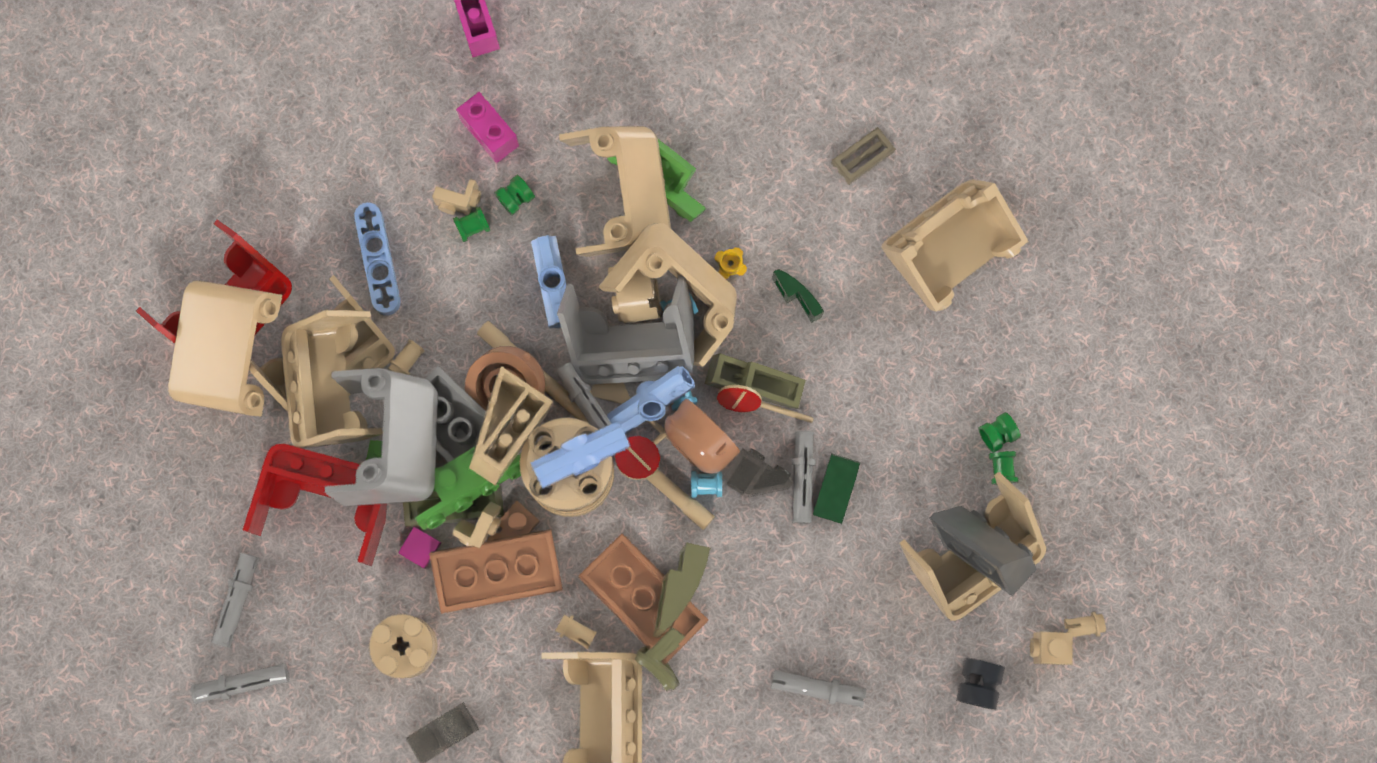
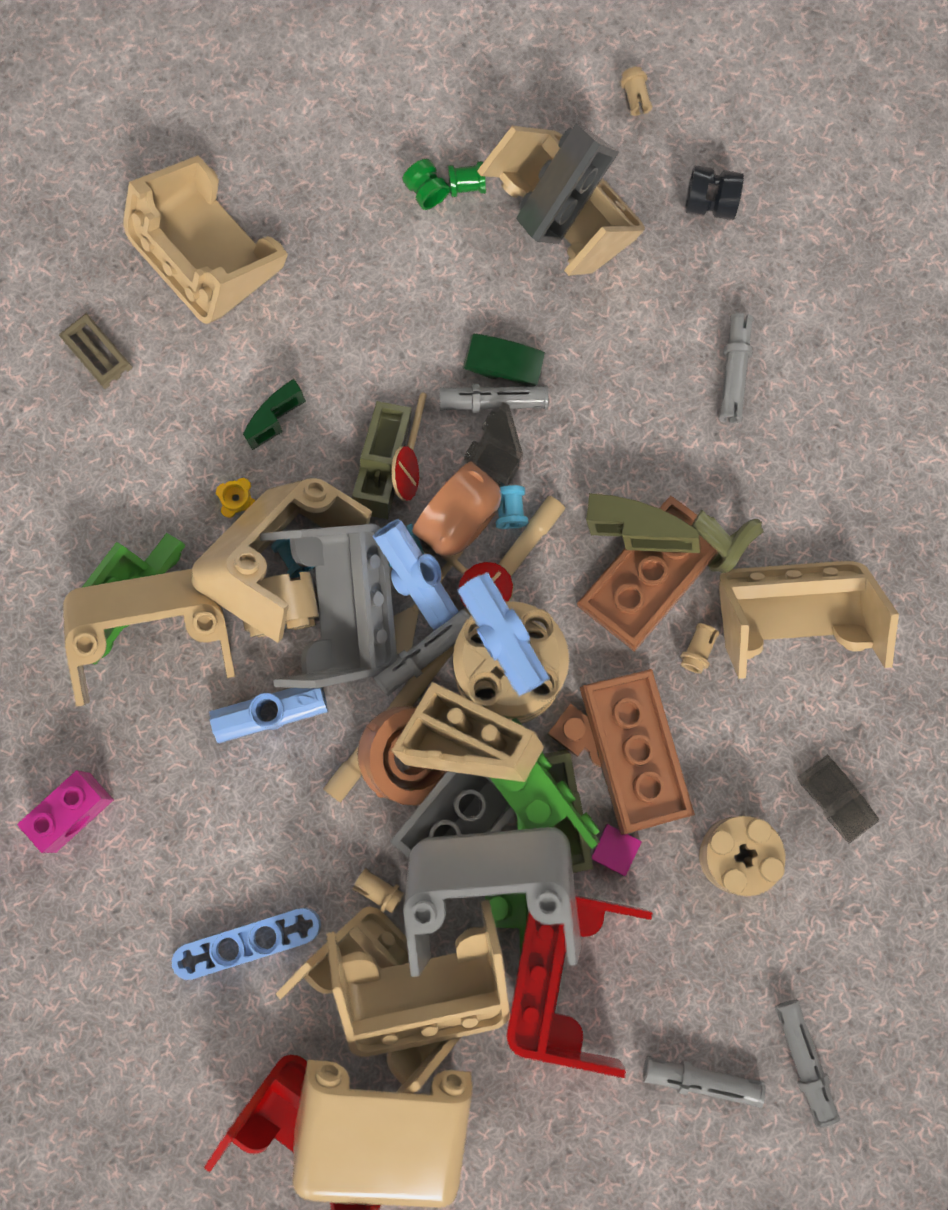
camera: 90 degrees left, 0 degrees up
(451, 201) = (167, 850): tan bracket -> none
(471, 224) = (196, 822): green bush -> none
(476, 535) = (598, 773): tan bracket -> none
(514, 194) = (155, 769): green wheel -> none
(1052, 648) = (666, 119): tan brick -> none

